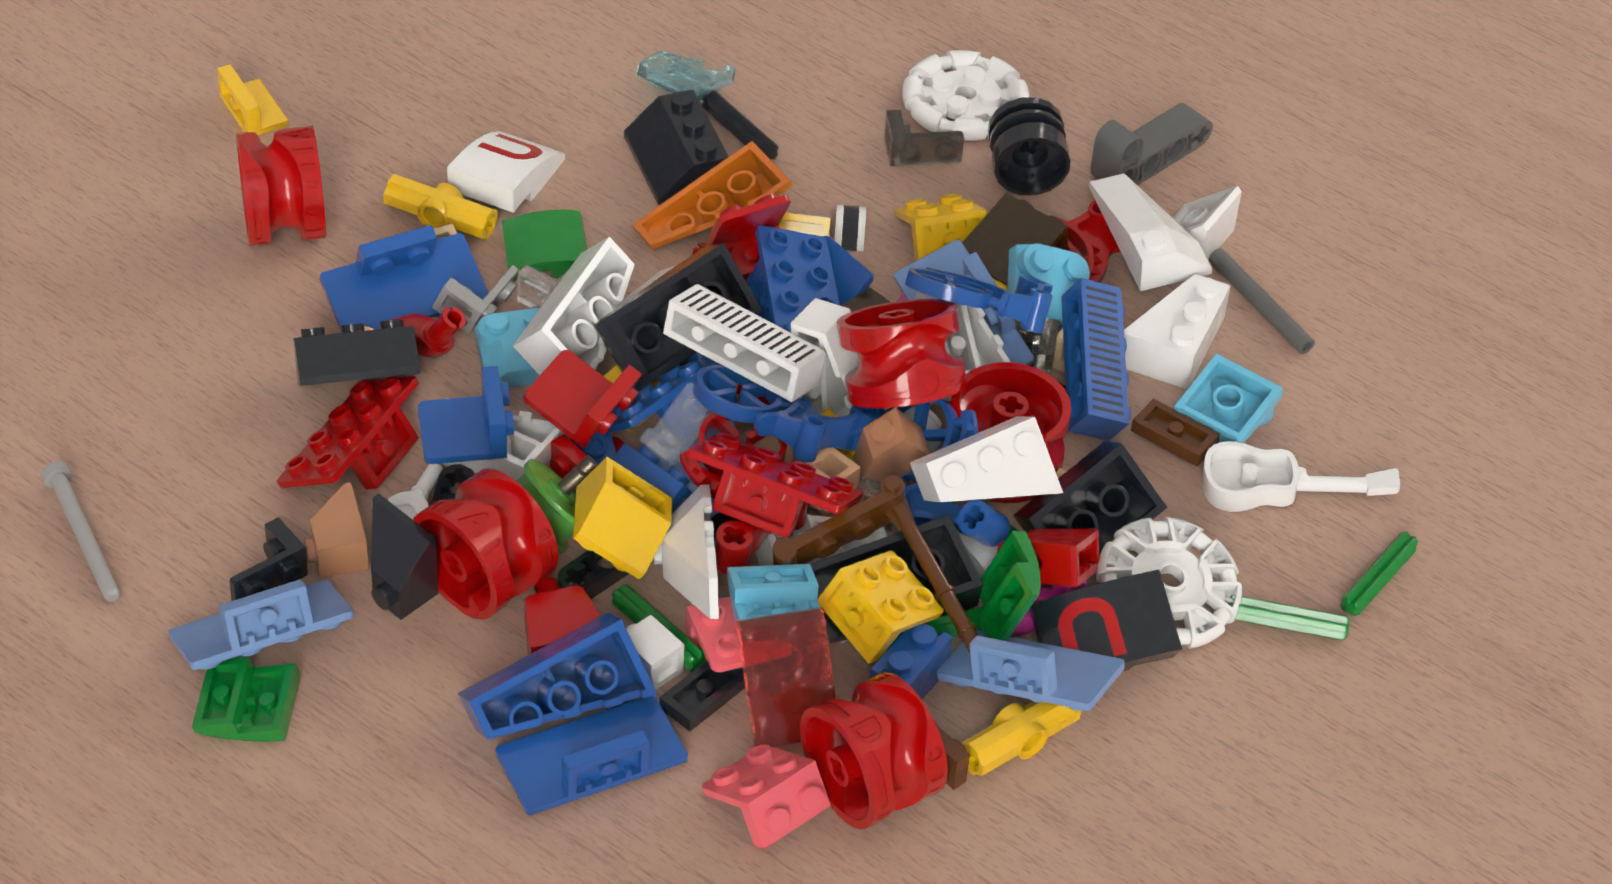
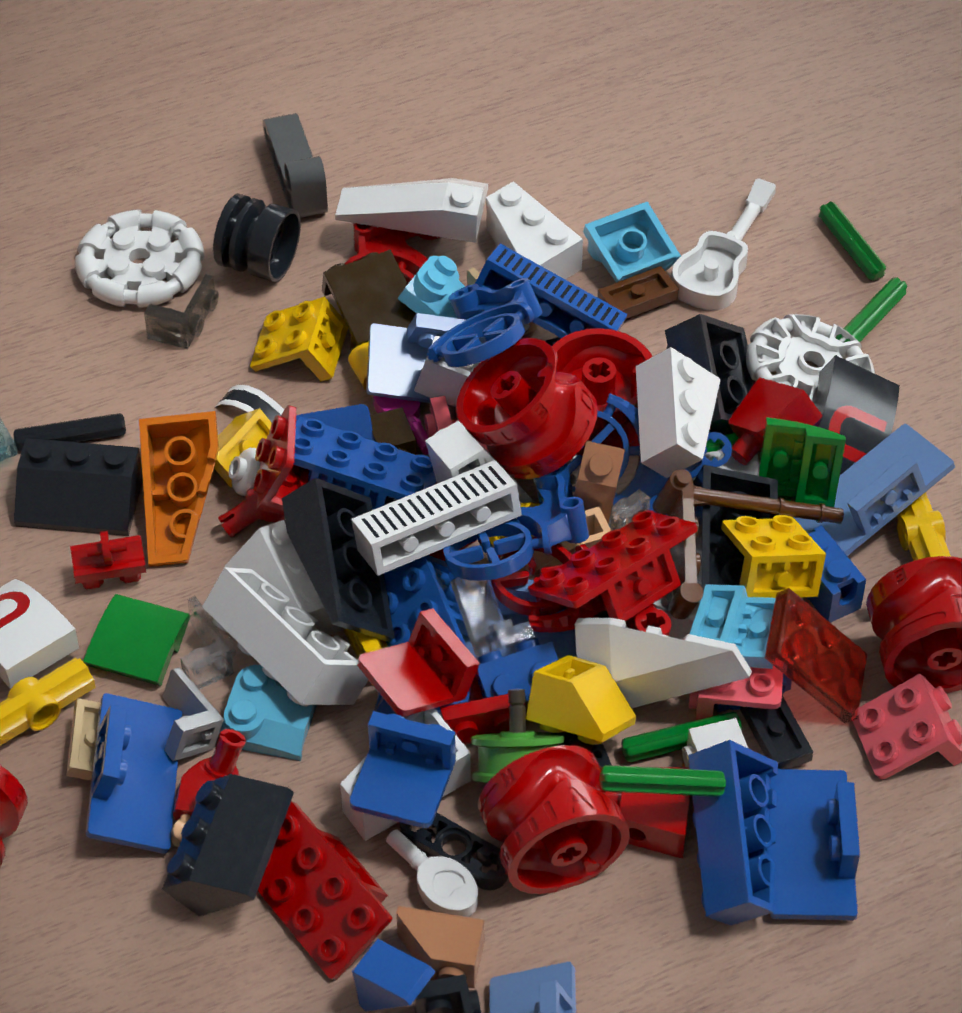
camera: 60 degrees left, 5 degrees up
(275, 494) = (389, 977): none -> blue slope
(401, 560) = (517, 902): black slope -> none
(546, 585) = (662, 780): none -> green axle
(611, 193) = (108, 560): none -> red hips
(1211, 218) = (408, 161): white slope -> none
(1261, 301) = (525, 177): dark grey piece -> none

